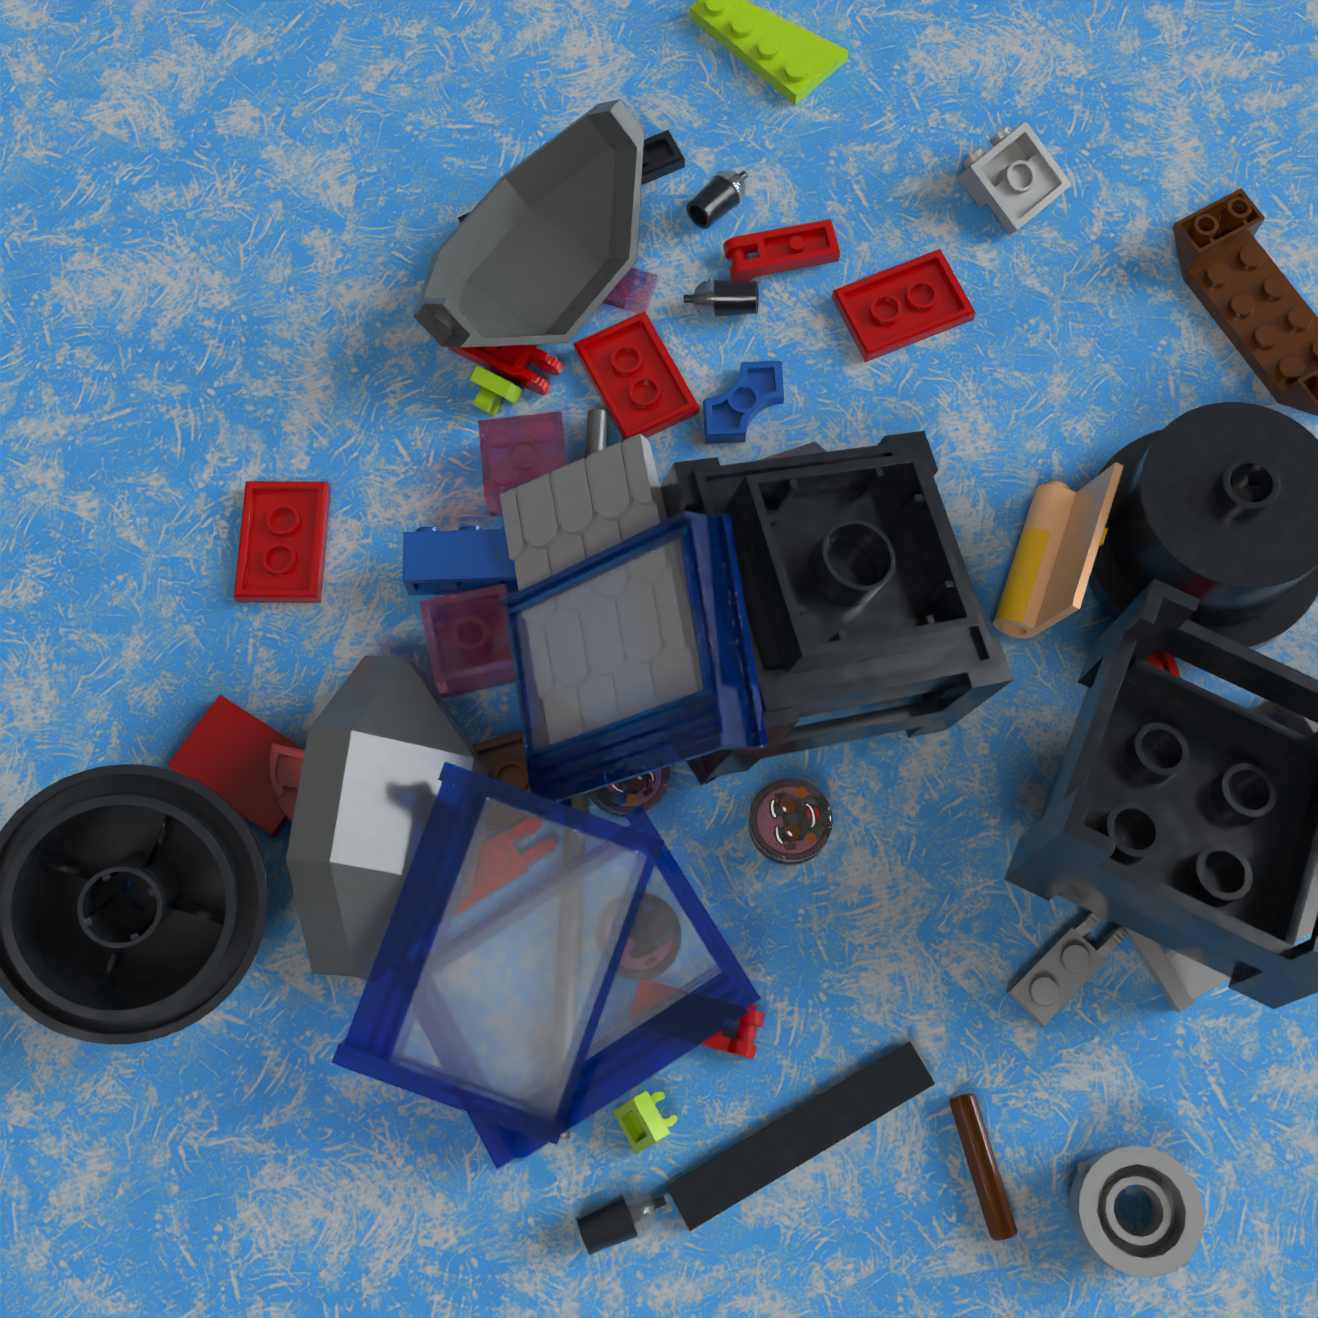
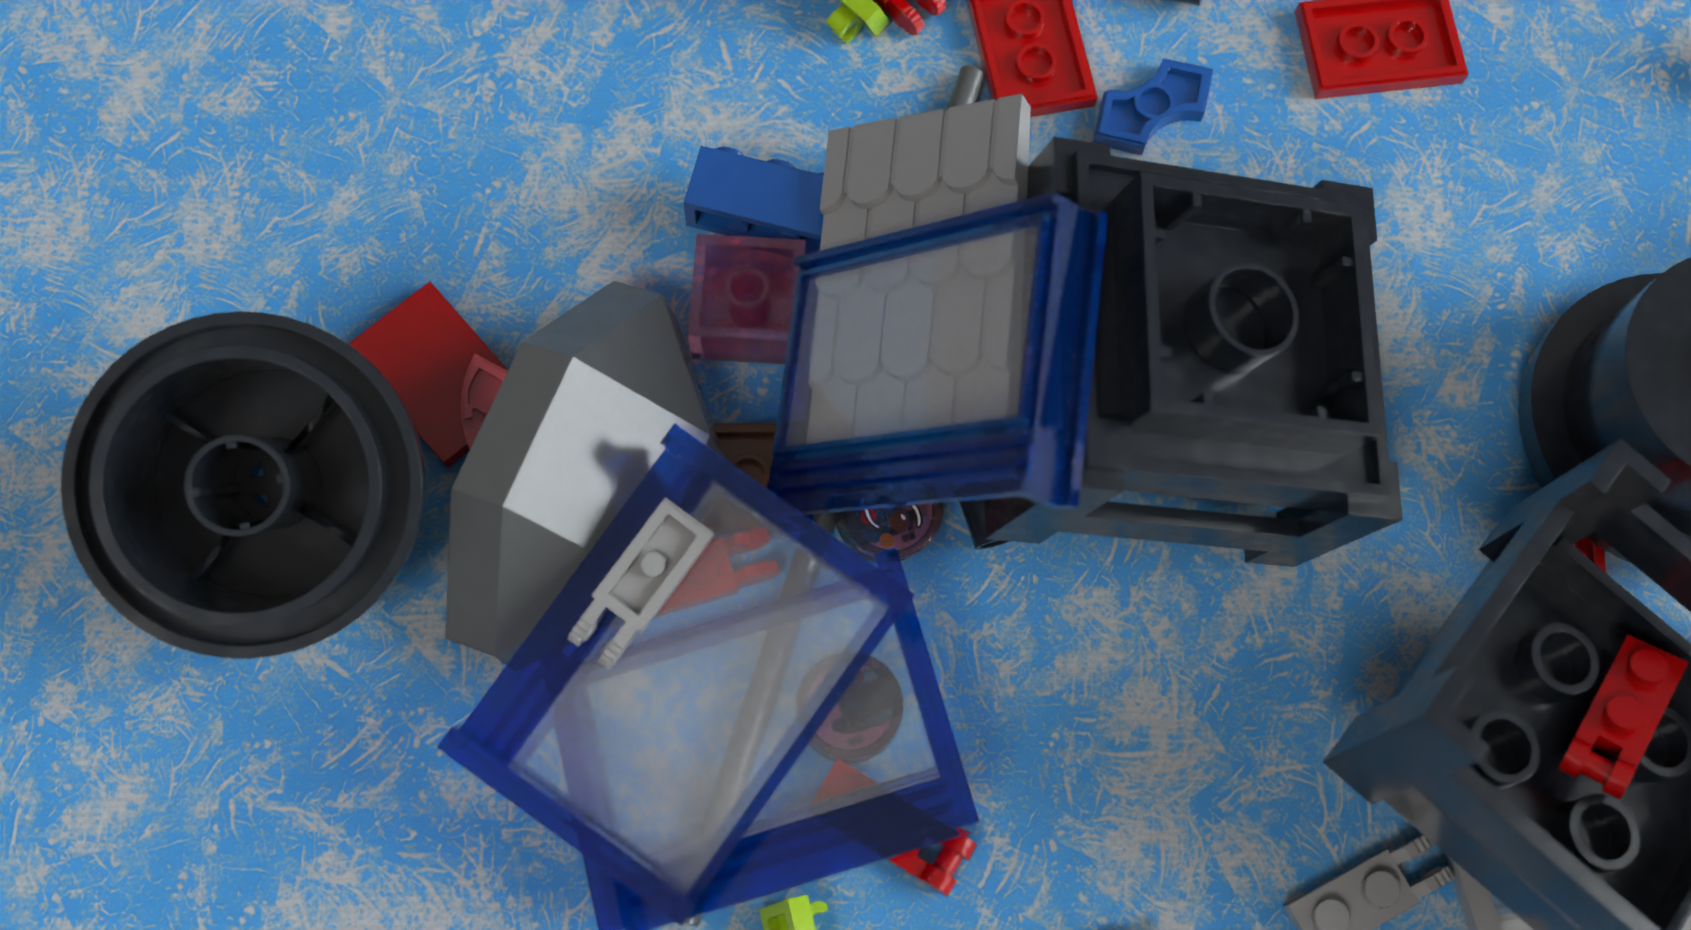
camera: 10 degrees right, 0 degrees up
(282, 542) = (554, 124): red tile -> none
(454, 885) = (644, 577): none -> light grey hinge
(518, 452) = (864, 87): clear pink brick -> none
(790, 822) = (1072, 622): clear smoke head -> none
(1055, 554) = (1492, 388): light nougat door -> none
(1215, 779) = (1624, 715): none -> red plate

